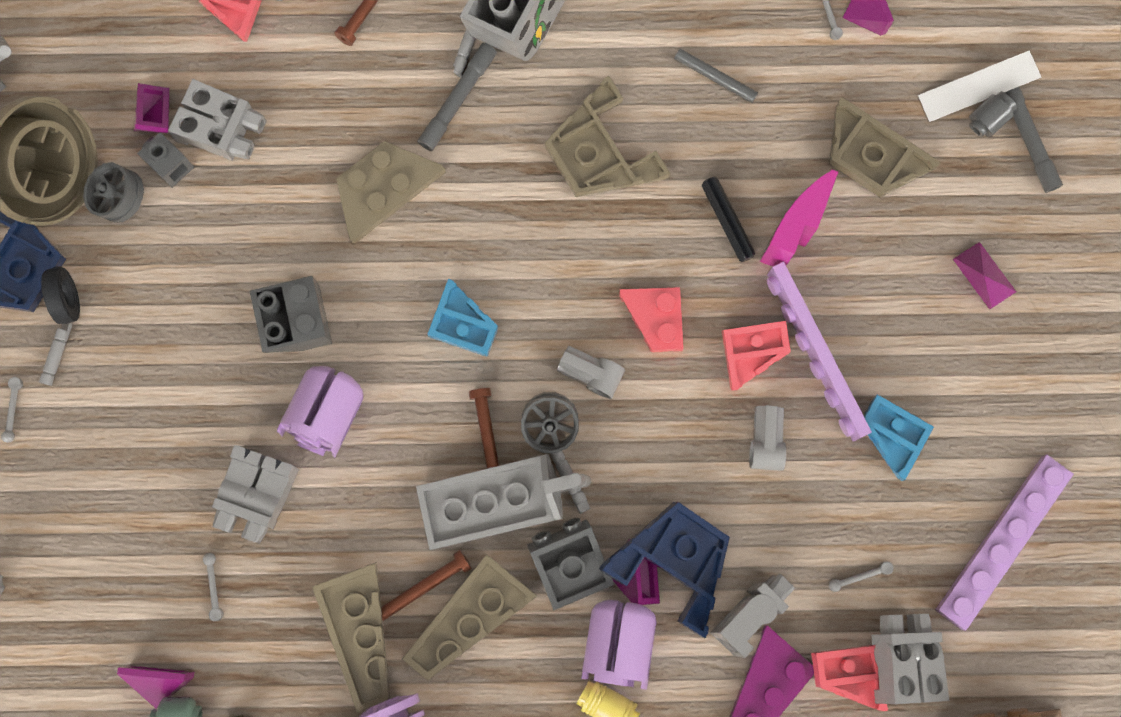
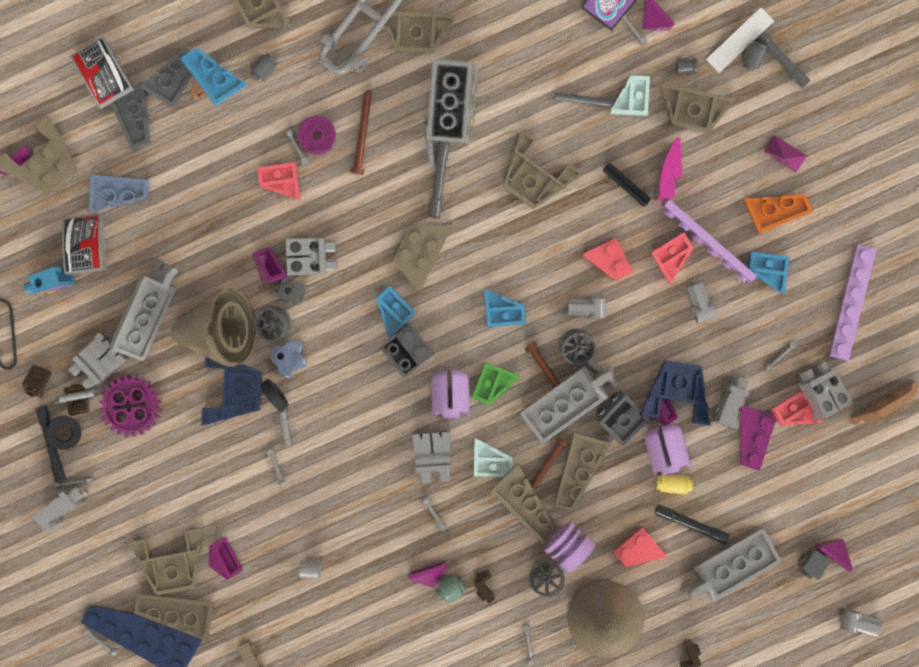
camera: 20 degrees left, 10 degrees up
(116, 257) = (291, 358): none -> sand blue plate
(301, 250) = (394, 311): none -> dark azure wing
(337, 541) = (490, 461): none -> light aqua wing
(397, 424) = (493, 383): none -> bright green wing
(789, 101) = (634, 97): none -> light aqua wing
(886, 90) = (686, 66): none -> dark grey bush
(933, 351) = (776, 211): none -> orange wing

